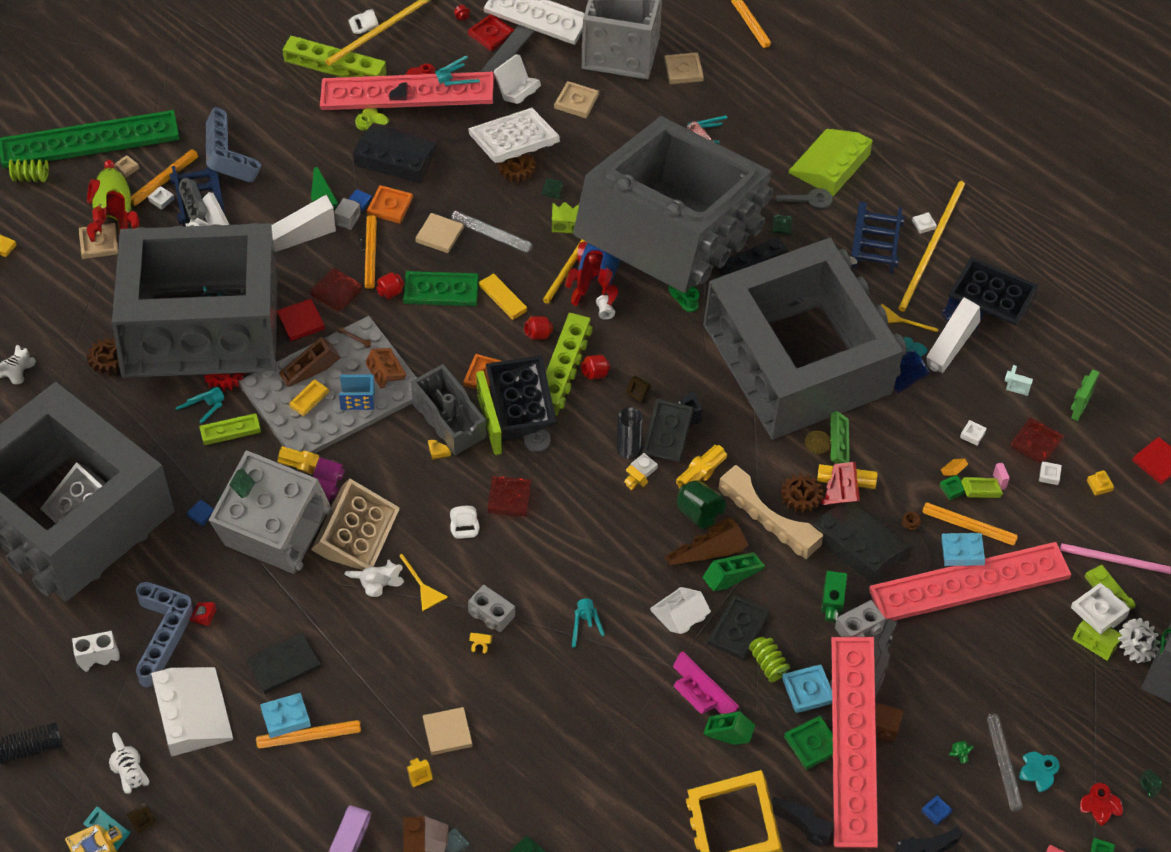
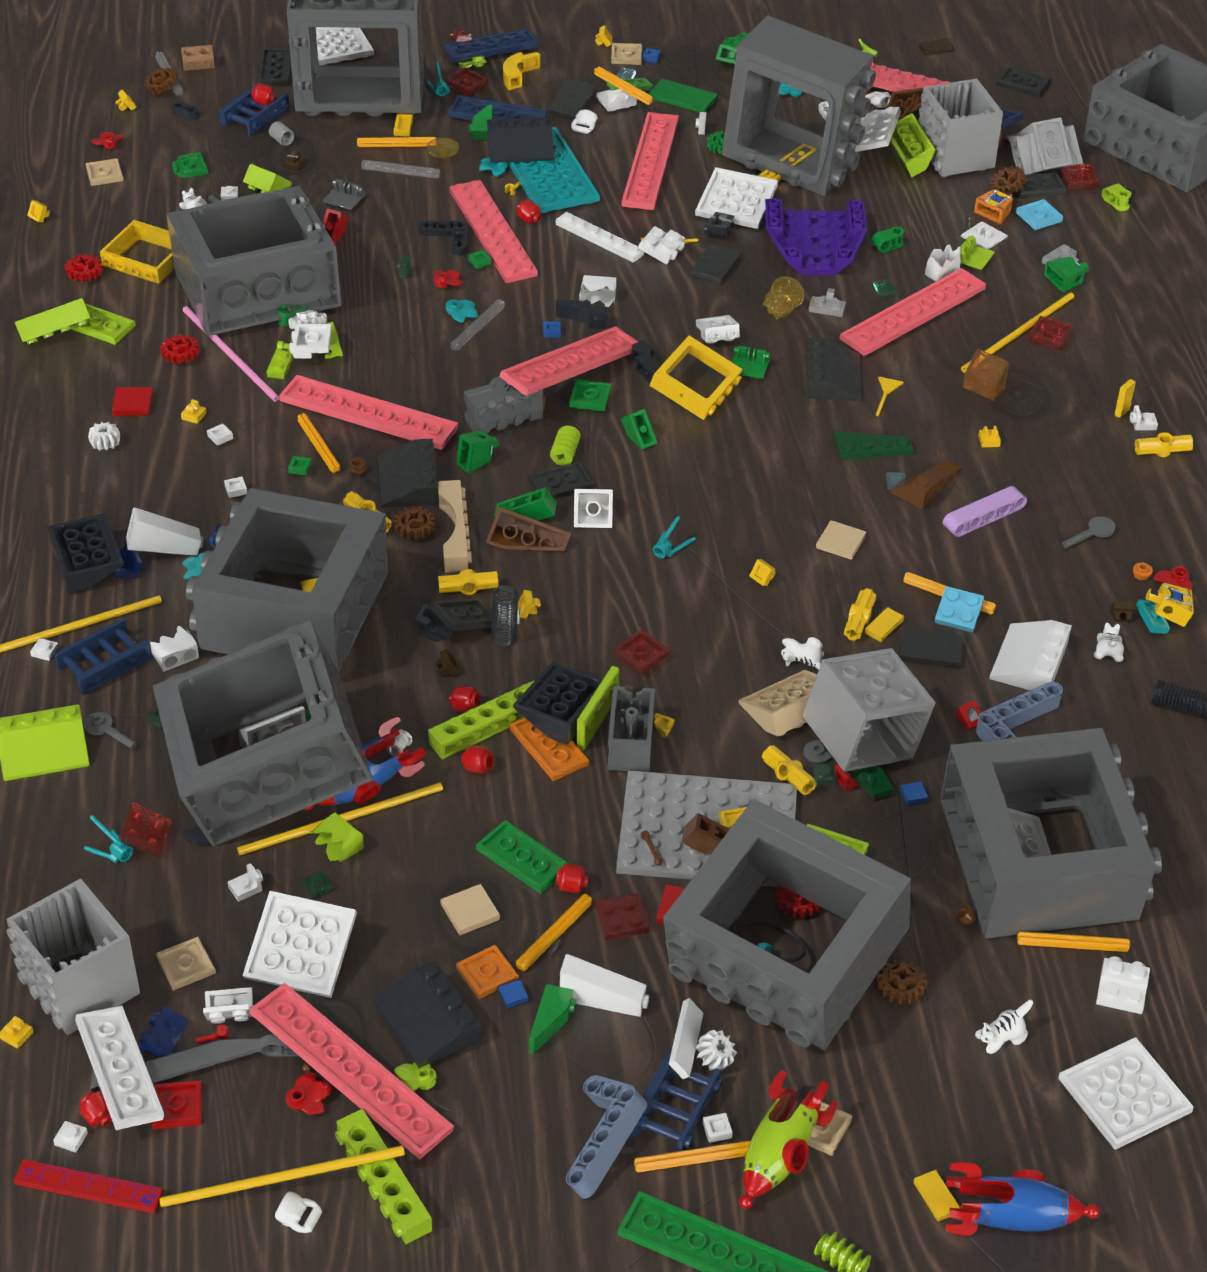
camera: 140 degrees left, 10 degrees down
(95, 642) = (1082, 719): white piece -> none
(126, 166) = (723, 1201): tan tile -> none
(187, 190) = (687, 1093): dark grey beam -> none
(242, 483) = (890, 690): clear green plate -> none
(328, 474) = (788, 740): magenta brick -> none
(340, 660) = (884, 624): none -> yellow tile
(347, 213) = (538, 977): light grey brick -> none
(357, 401) = (702, 777): piece -> none
(366, 652) = (860, 614): none -> yellow piece
(384, 366) = (651, 797): dark orange bracket -> none
(399, 92) = (363, 1064): black tile -> none
(419, 772) = (886, 523): yellow tile -> none
(429, 596) = (772, 631): yellow piece -> none
(444, 74) = (305, 1034): teal plant -> none
(461, 12) = (182, 1147): red plate -> none
(461, 517) = (695, 657): white piece -> none
(491, 231) = (421, 879): clear axle -> none
(494, 605) = (735, 586): light grey brick -> none
(503, 296) = (475, 813): yellow tile -> none
(540, 54) = (163, 1033): none -> clear blue bracket
(594, 158) = (246, 884): none -> white bracket
(700, 503) = (502, 550): dark green cylinder -> none
(700, 688) = (635, 458): dark pink bracket -> none
(808, 688) = (554, 418): medium azure plate -> none
(842, 485) = (383, 498): wing -> none
(857, 620) = (494, 394): light grey brick -> none
(893, 318) = (176, 603): yellow piece -> none
(954, 467) = (281, 474): light orange tile -> none
(961, 750) = (499, 340): green plant -> none
(963, 549) = (348, 427): medium azure plate -> none
(982, 487) = (283, 452): lime tile -> none
(1001, 475) = (257, 450): bright pink tile -> none
(1017, 383) = (155, 497): light aqua bracket -> none
(1037, 440) = (198, 456): clear red plate -> none
(1083, 395) = (127, 450): bright green plate -> none
(1127, 406) = (104, 436): none -> white gear

